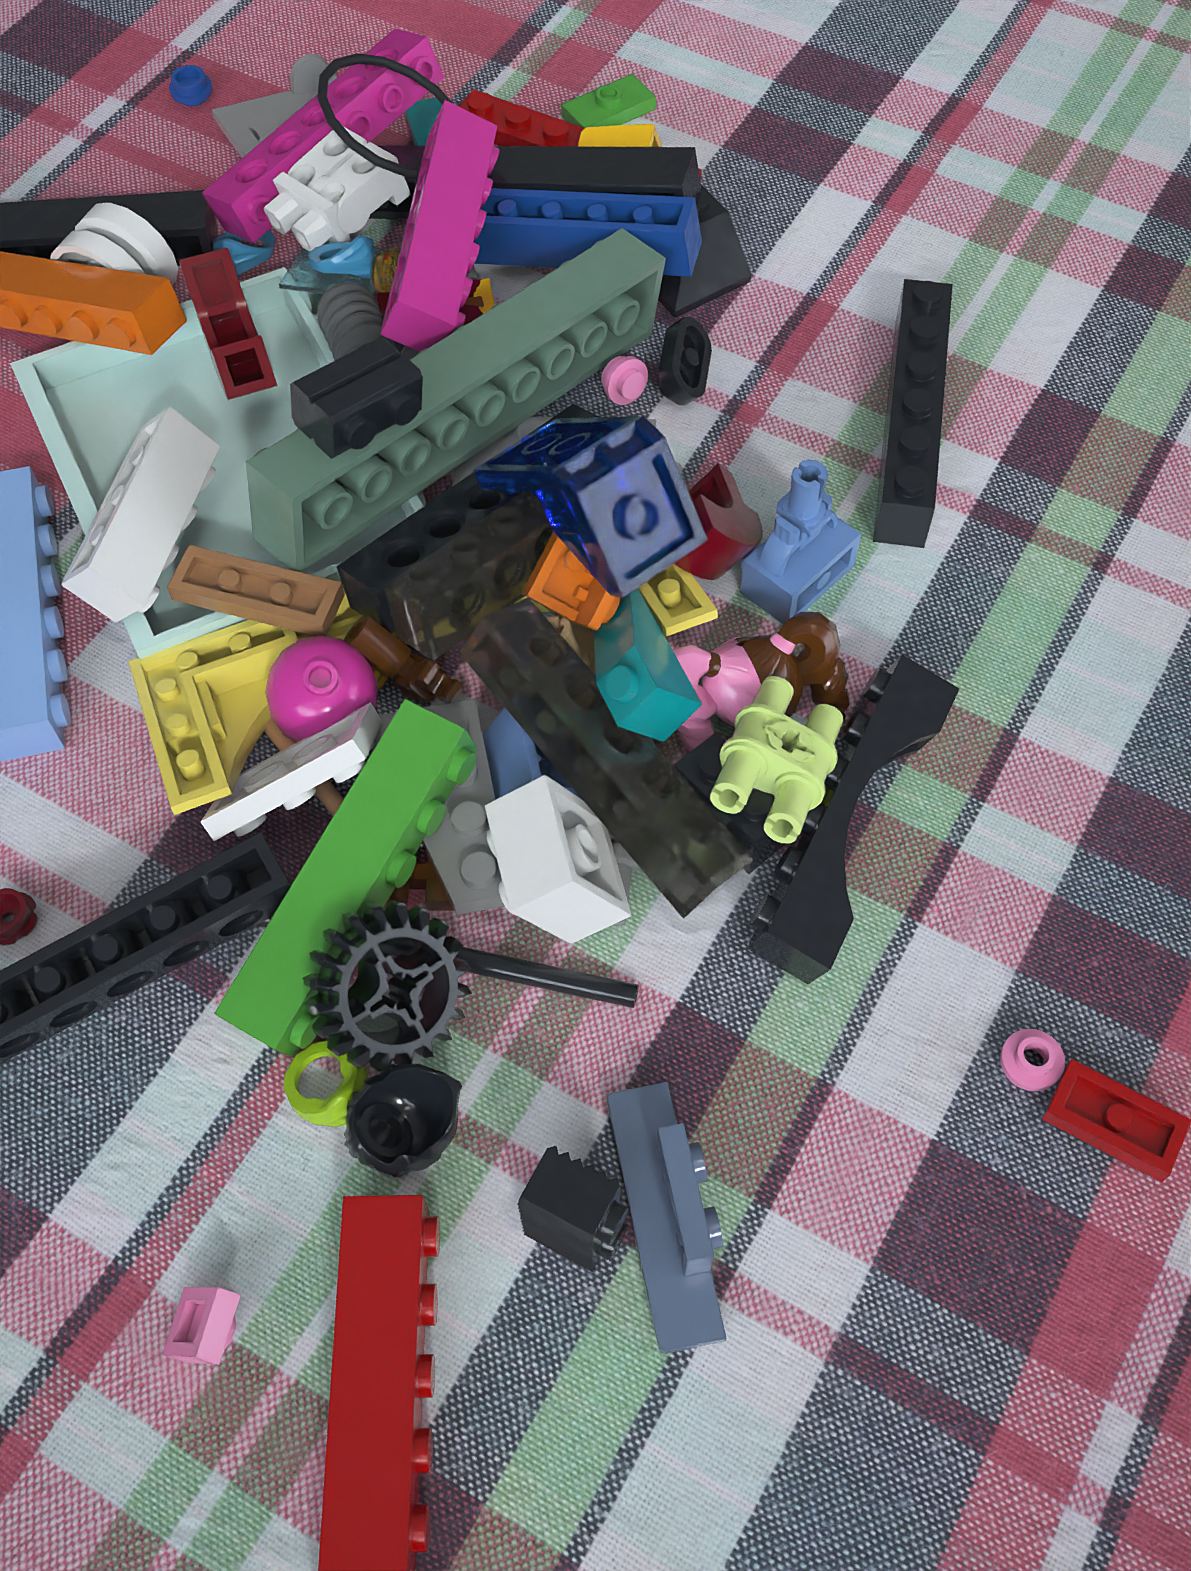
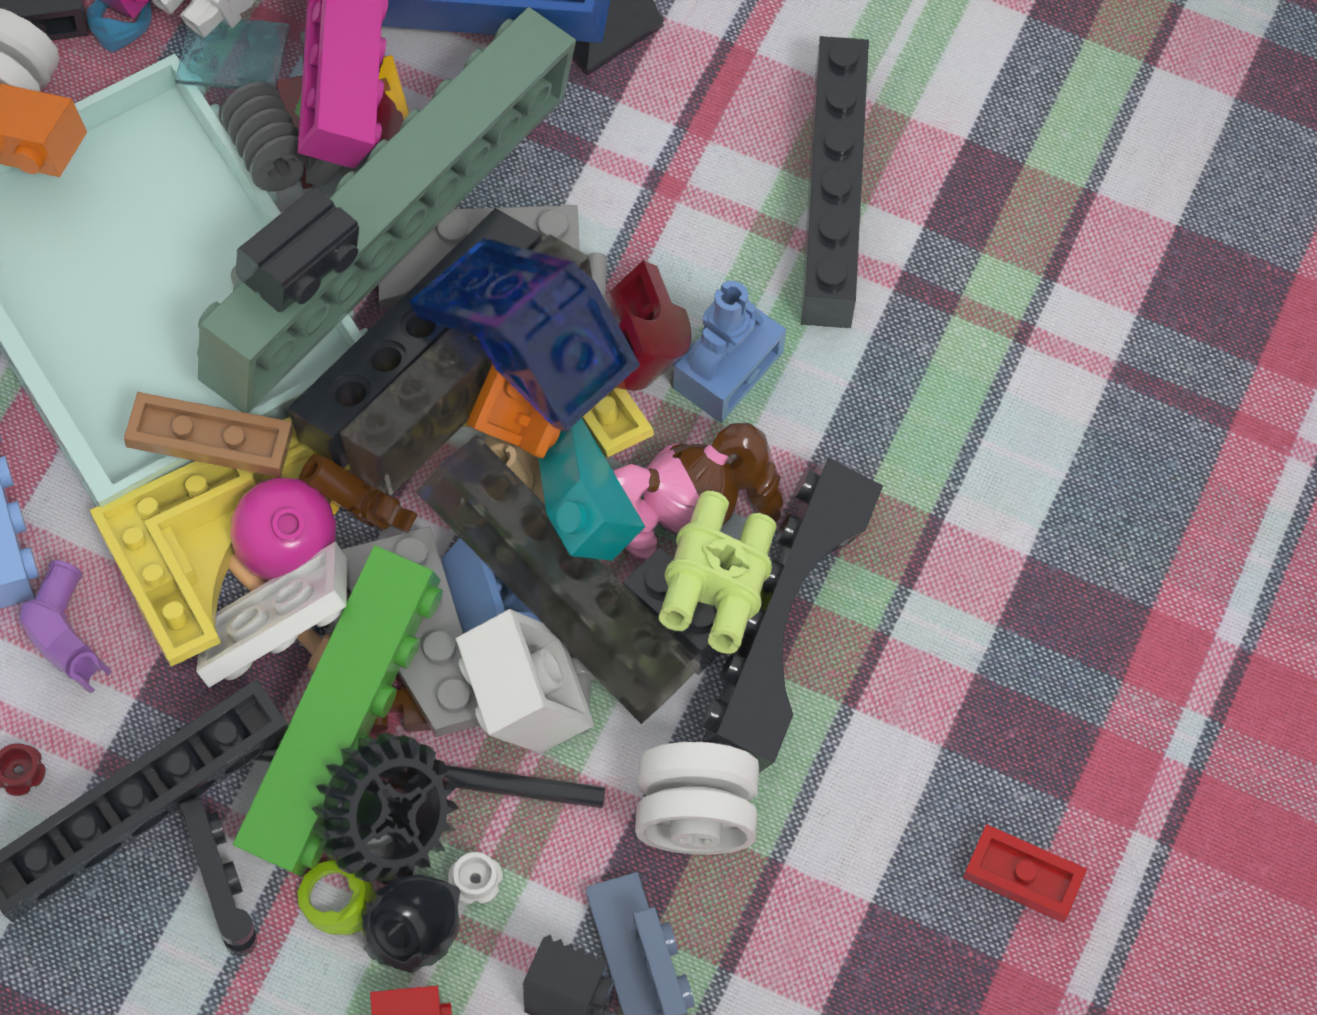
camera: 10 degrees left, 5 degrees up
(68, 774) = (52, 633): none -> medium lavender arm
(143, 517) = (87, 363): white brick -> none
(197, 1050) = (219, 879): none -> black plate
(227, 324) = (135, 145): dark red arch -> none
(345, 257) = (254, 55): dark azure piece -> none
(384, 269) = (287, 53): clear yellow tile -> none
(482, 1058) = (476, 864): none -> white plate
(624, 379) = (541, 160): bright pink plate -> none
(684, 361) = (601, 135): black plate -> none
(741, 1001) = (697, 798): none -> white wheel
(1023, 1073) = (949, 841): bright pink plate -> none

